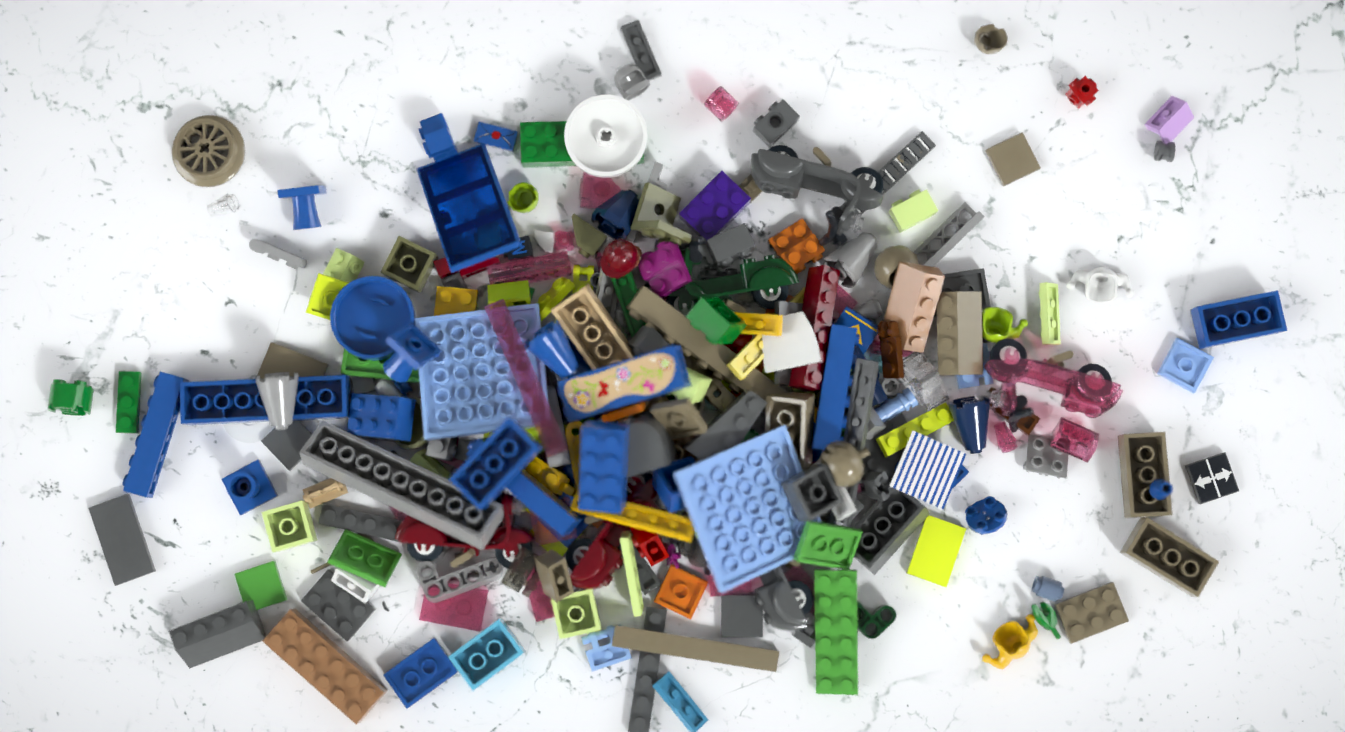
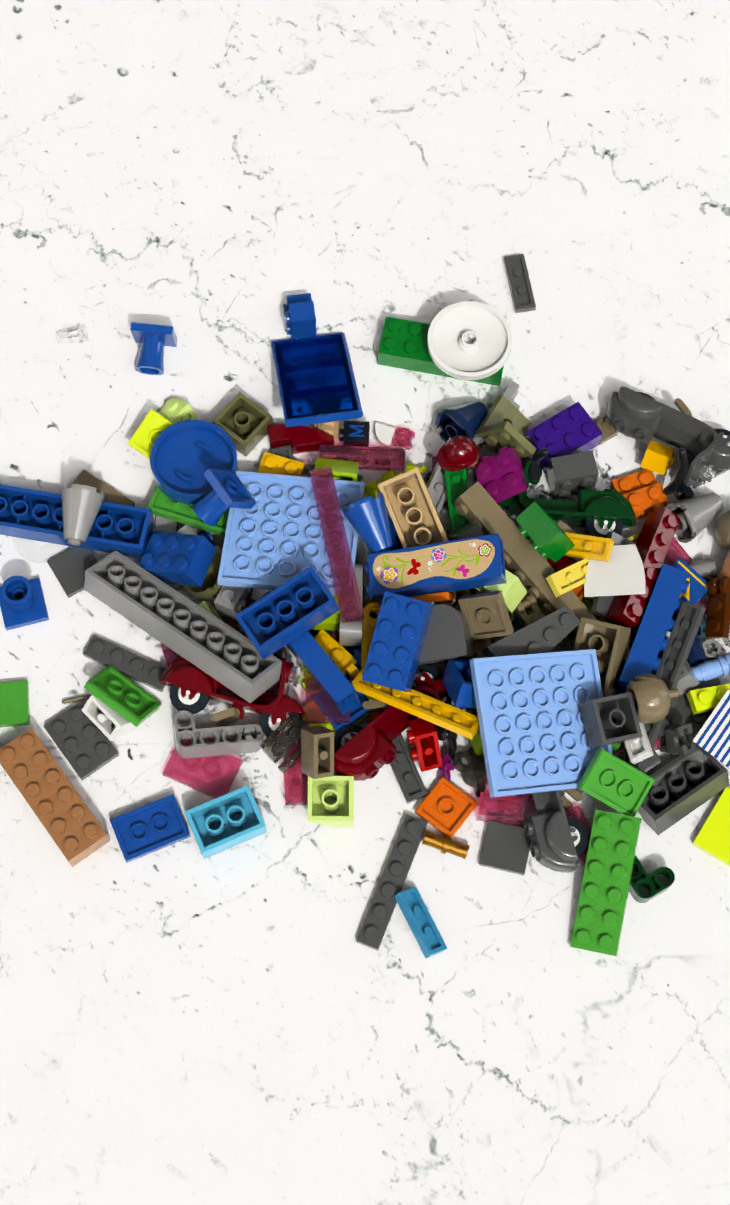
camera: 10 degrees right, 15 degrees down
(221, 173) = (80, 304): dark tan piece -> none
(276, 253) = (112, 388): light grey hinge -> none
(289, 526) = (53, 647): yellowish green brick -> none
(323, 492) = (98, 624): tan hinge -> none
(496, 136) = (357, 329): blue tile -> none
(523, 197) = (372, 388): lime hair -> none
(588, 238) = (427, 438): olive slope -> none
(596, 190) = (446, 393): clear pink plate -> none
(606, 654) = (354, 853): light blue plate -> none
(631, 81) = (506, 303): light grey helmet -> none
(632, 573) = (399, 772): yellowish green tile -> none
(687, 626) = (445, 844): none -> pearl gold pin
(695, 648) = (450, 867): dark tan tile -> none
(721, 103) = (590, 344): clear pink piece -> none
(771, 134) = (649, 364): dark grey brick -> none
(804, 636) = (569, 882): dark grey tile -> none
(808, 208) = (658, 457): none -> yellow brick

